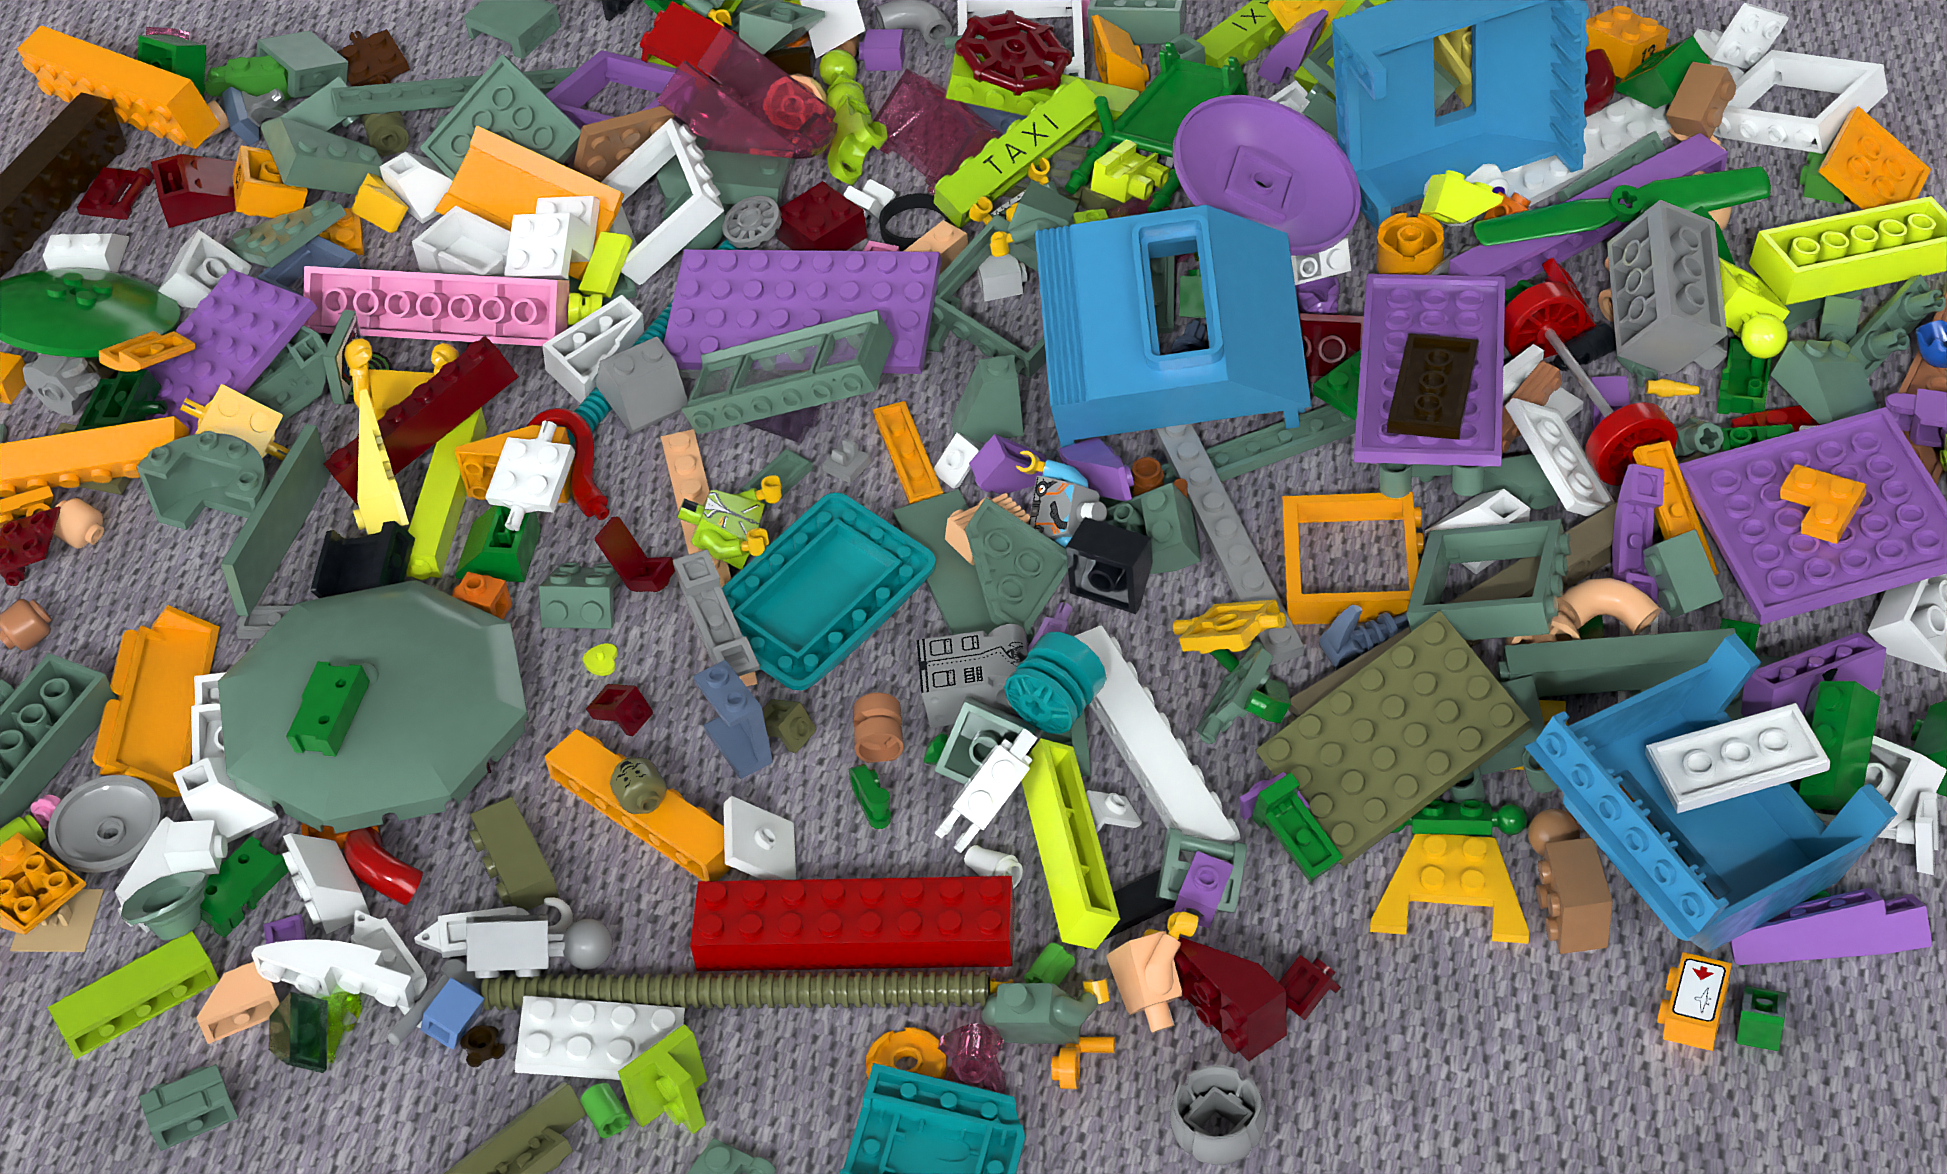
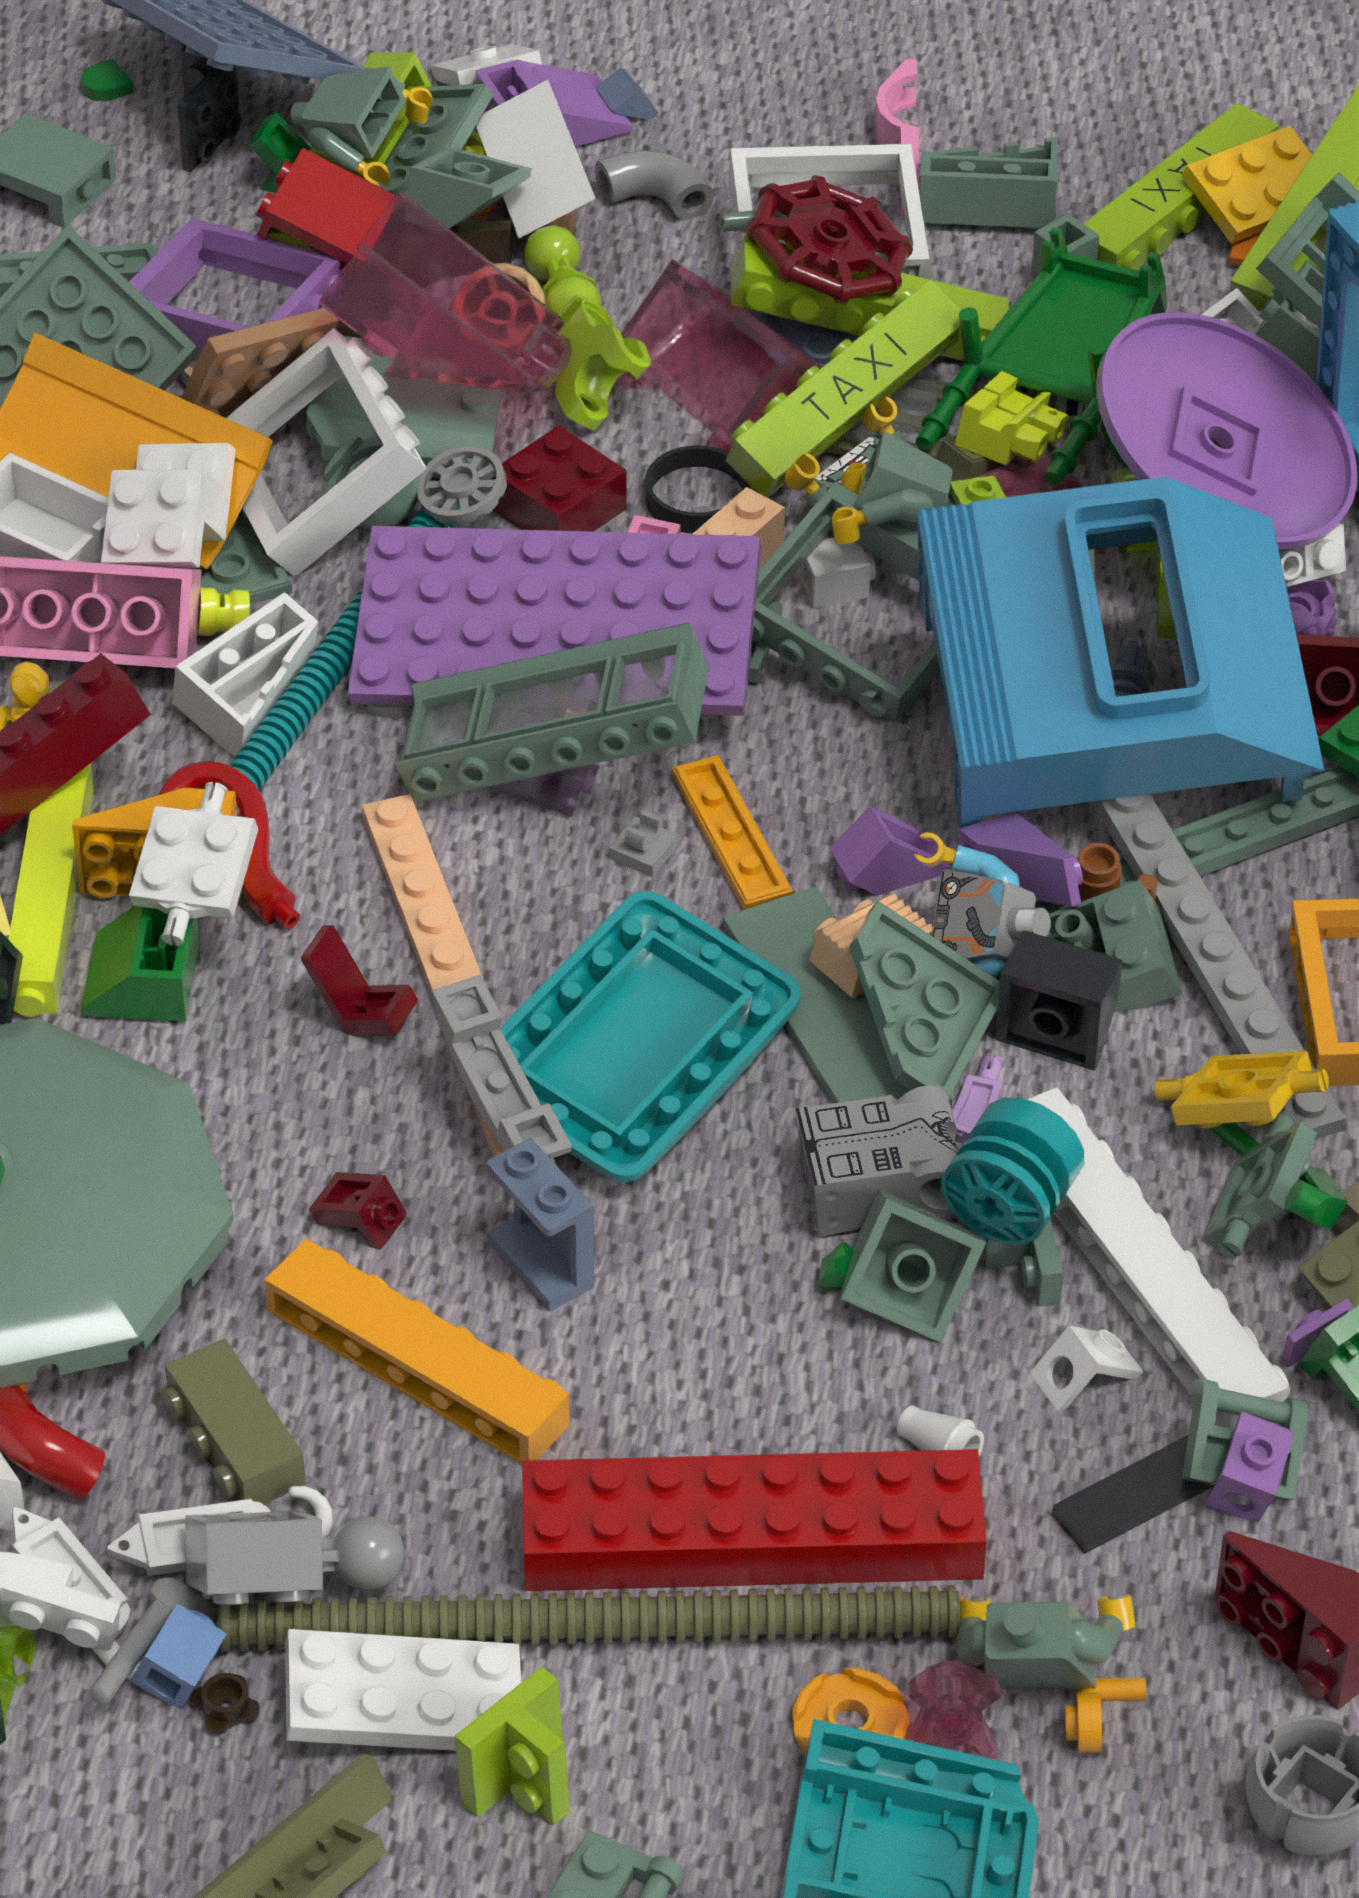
camera: 10 degrees left, 0 degrees up
(484, 593) = (136, 1036): orange brick -> none
(579, 597) = (276, 1043): sand green bracket -> none
(600, 659) = (317, 1136): neon yellow piece -> none
(604, 1110) = (423, 1793): bright green piece -> none
(605, 264) = (248, 545): neon yellow tile -> none
(638, 785) = (418, 1321): olive head -> none
(642, 384) = (329, 728): light grey slope -> none
(731, 522) = (495, 933): lime torso -> none
(758, 841) = (598, 1402): white plate -> none
(788, 467) = (543, 869): sand green tile -> none
(788, 722) = (619, 1230): olive bracket -> none
(870, 796) = (749, 1338): green plate -> none
(871, 199) = (631, 450): white bracket -> none
(877, 728) = (748, 1236): nougat wheel -> none
(883, 50) = (614, 227): medium lavender brick -> none
(954, 462) = (808, 844): white bracket -> none
(989, 787) = (926, 1323): white hinge -> none
(990, 401) = (851, 760): sand green slope -> none
(1050, 966) = (1042, 1577): bright green piece -> none
(1069, 846) = (1051, 1404): neon yellow brick -> none
(1117, 56) = (966, 247): light orange slope -> none
(1147, 970) = (1192, 1584): light nougat torso -> none
(1191, 296) = (1131, 603): green slope -> none
(1293, 48) = (1227, 239): medium lavender slope -> none

